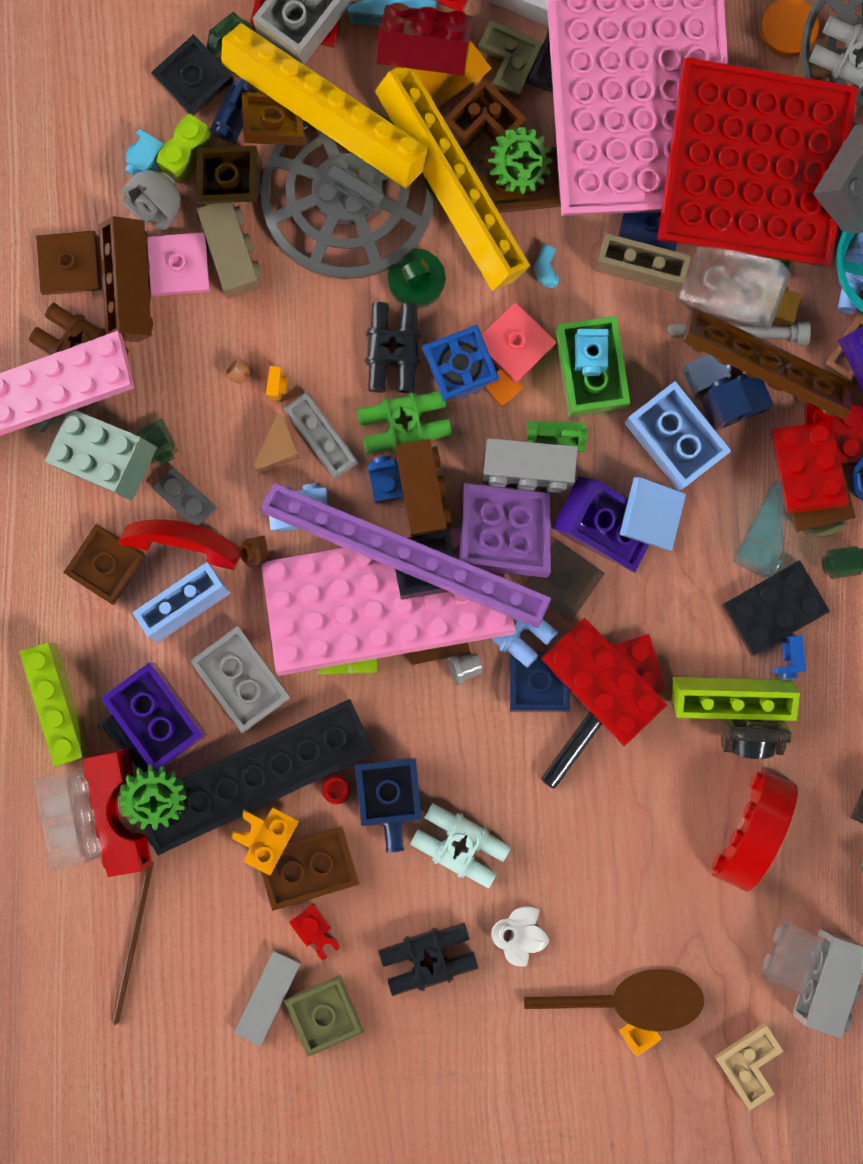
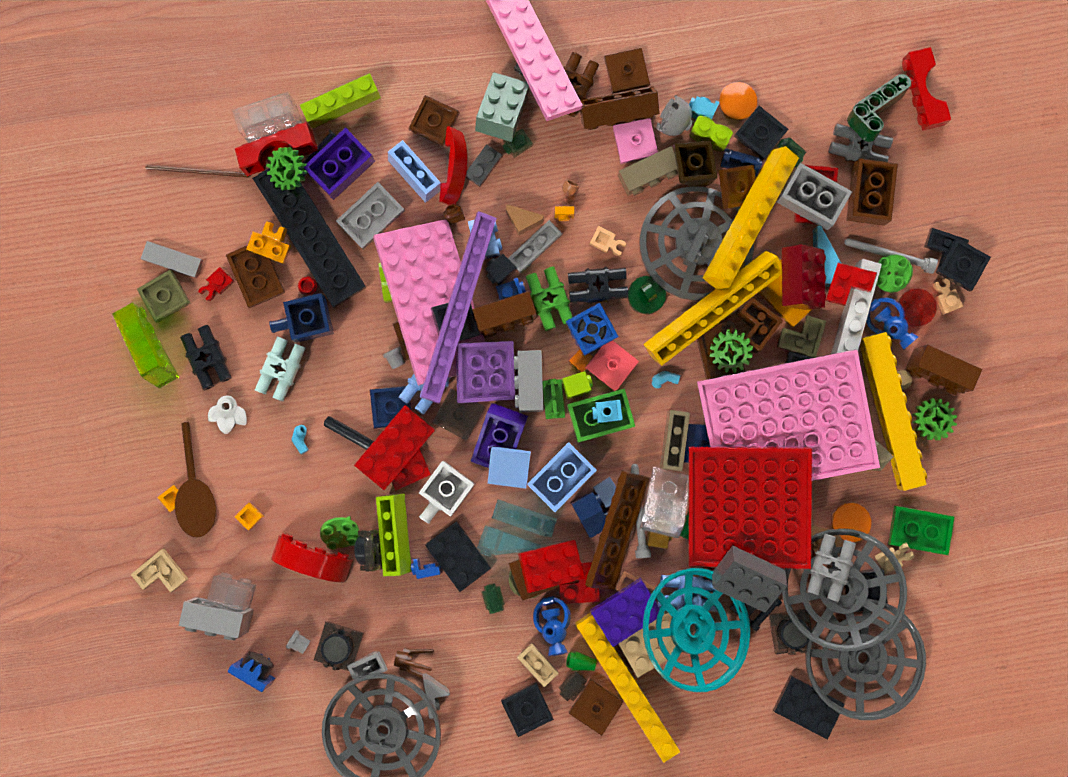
camera: 80 degrees right, 0 degrees up
(138, 103) = (738, 101): none -> orange dish
(326, 329) = (604, 240): none -> light nougat plate
(350, 492) = (499, 269): none -> black brick
(398, 1052) = (144, 345): none -> clear neon green wedge
(543, 395) = (577, 385): none -> lime brick
(568, 829) = (298, 438): none -> medium azure arm
(678, 613) = (444, 491): none -> white brick
(680, 918) = (249, 516): none -> light orange plate
(722, 780) = (339, 532): none -> bright green plate
(731, 501) = (524, 518): none -> clear light blue slope

